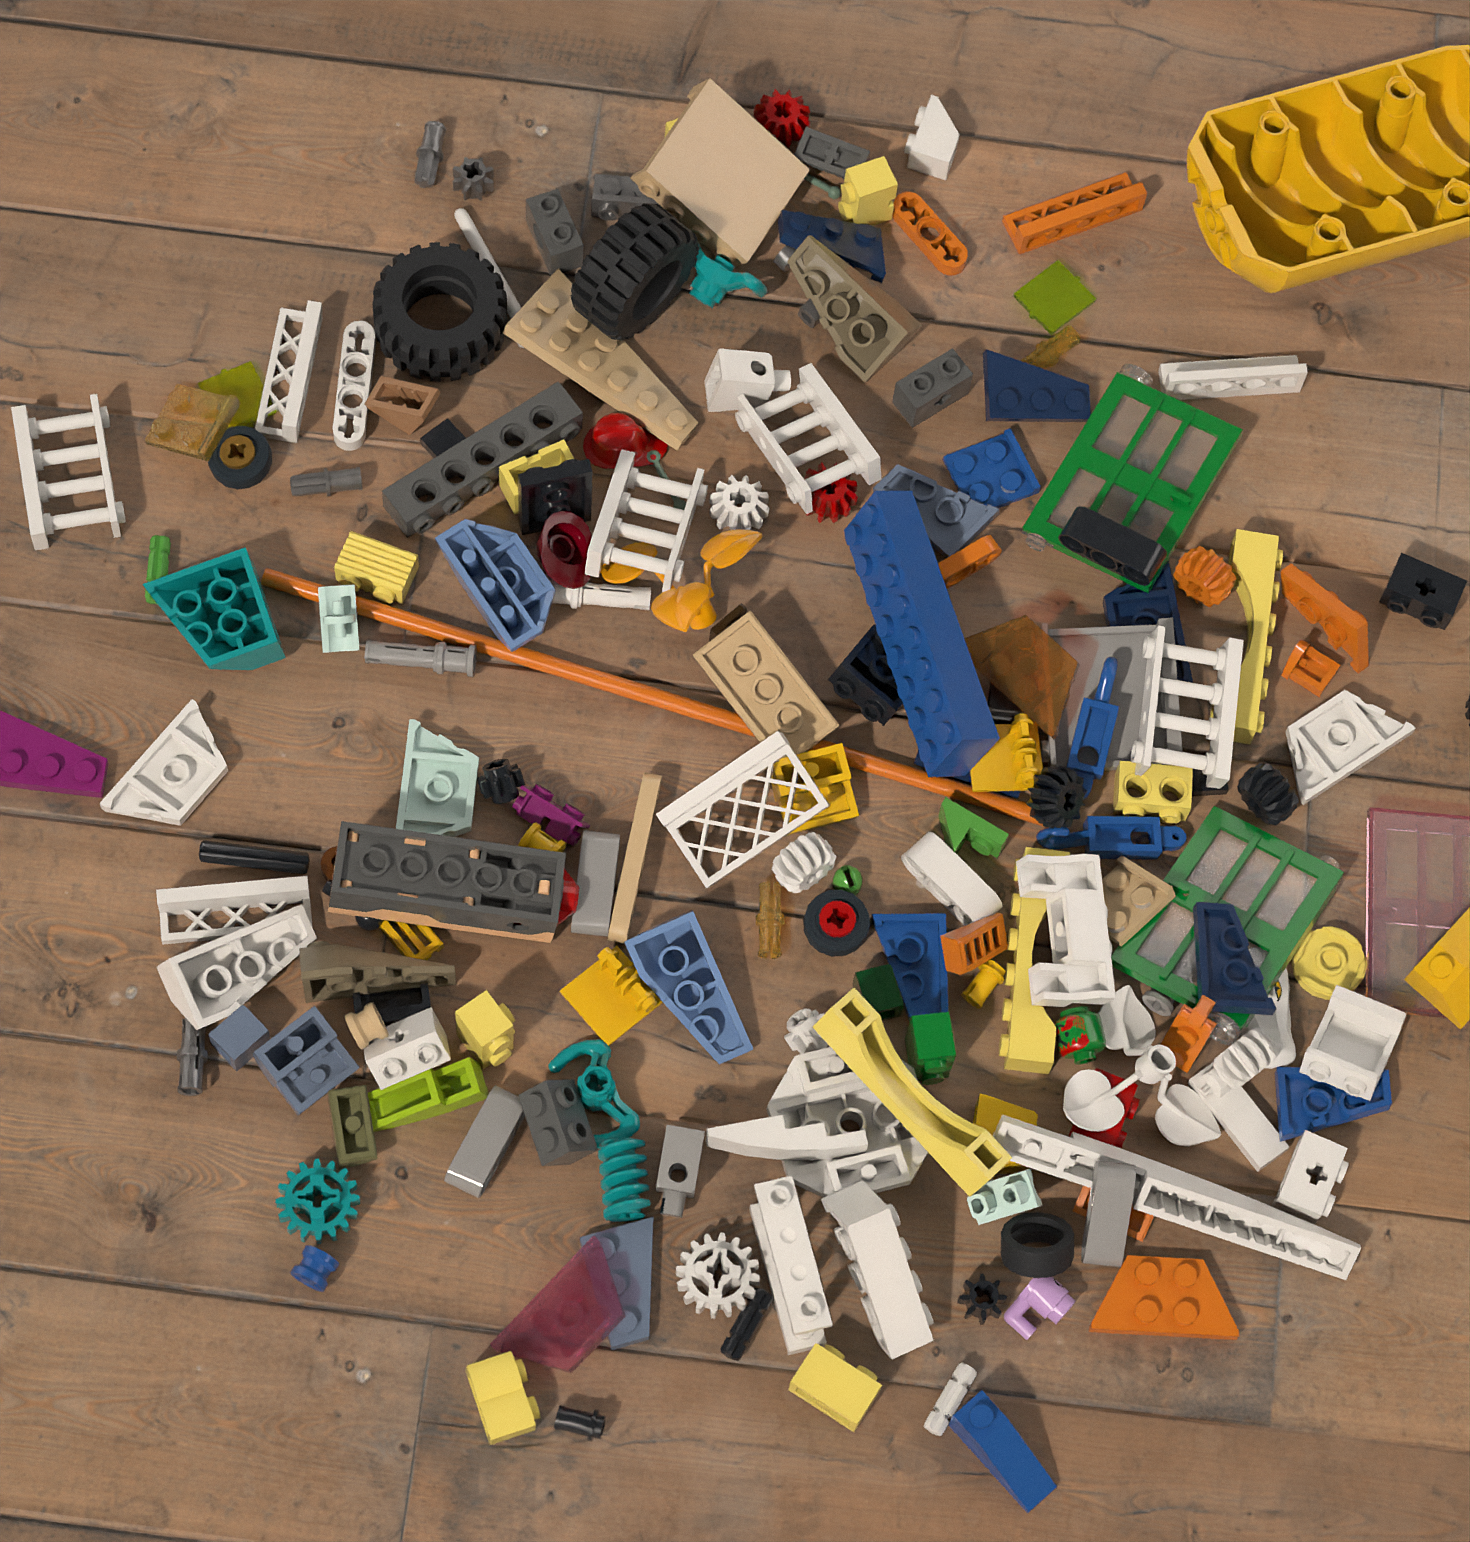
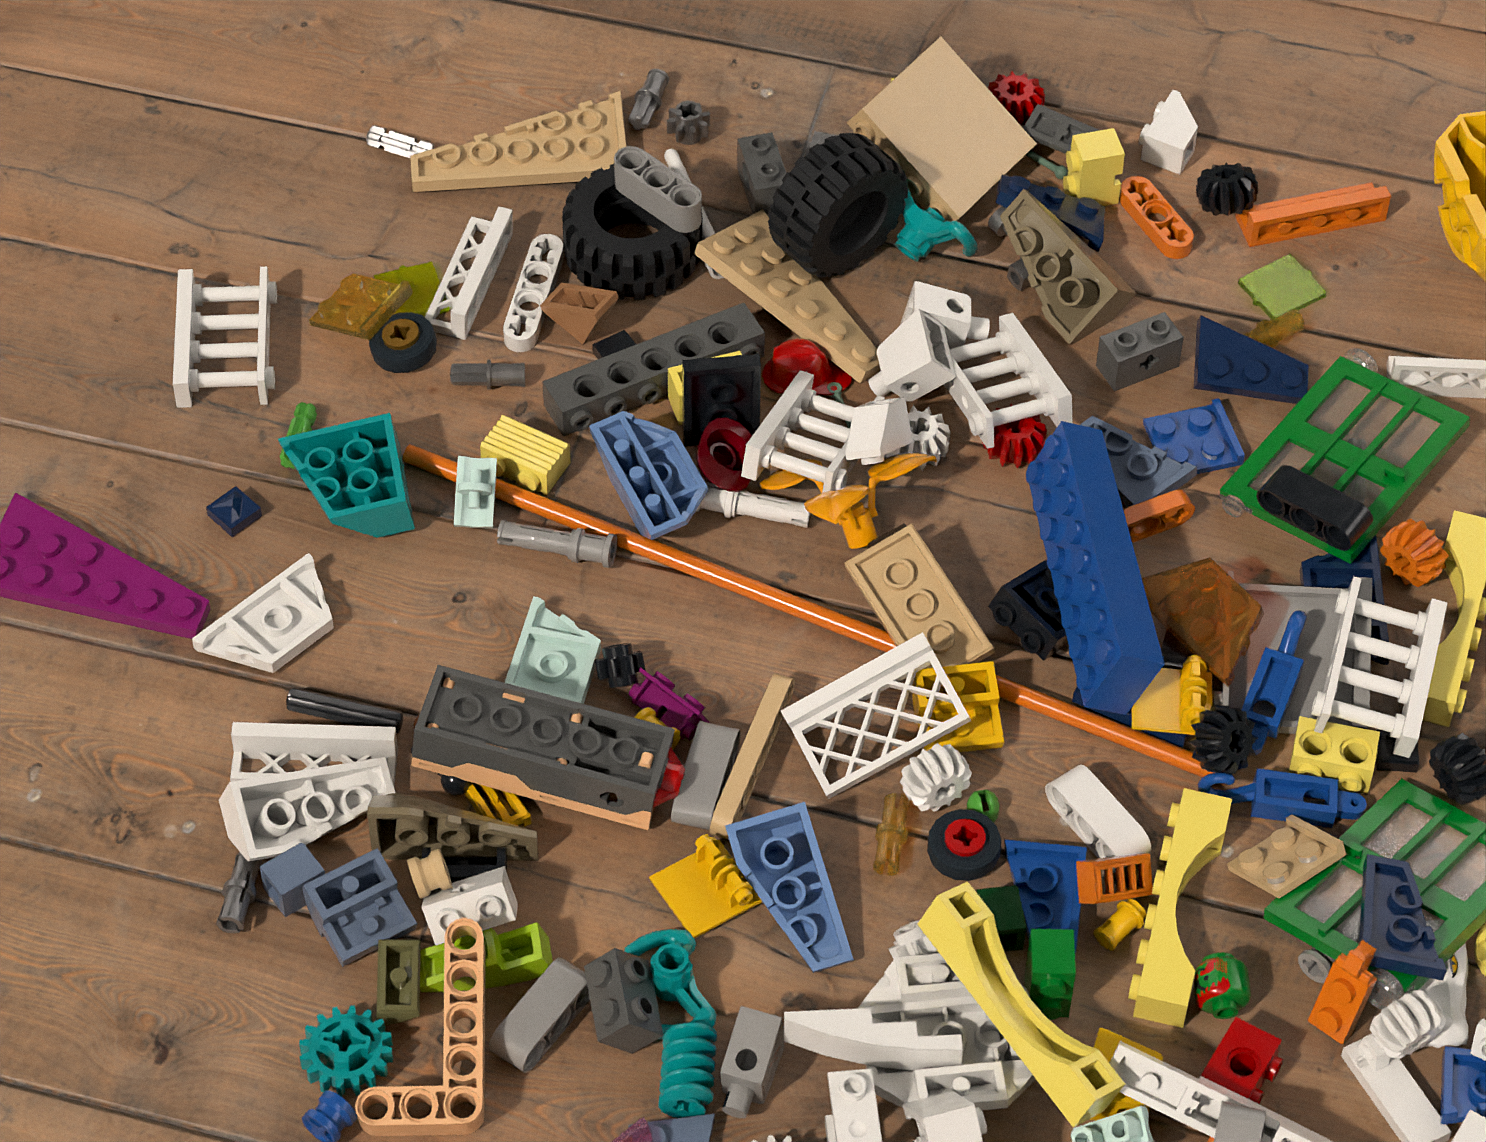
camera: 15 degrees right, 15 degrees down
(111, 659) = (234, 511): none -> dark blue tile
(197, 232) = (396, 142): none -> axle
(337, 225) = (528, 152): none -> tan wing
(416, 1189) = (456, 1047): none -> light nougat beam
(455, 263) = (658, 189): none -> light grey beam
(486, 1030) = (559, 897): light yellow brick -> none
(706, 515) = (878, 430): none -> white slope
(726, 426) = (913, 359): none -> white torso
(962, 825) = (1121, 766): bright green slope -> none
(993, 199) = (1227, 189): none -> black gear
(1076, 927) = (1230, 870): white bracket -> none
(1092, 1102) = (1276, 983): white plant -> none

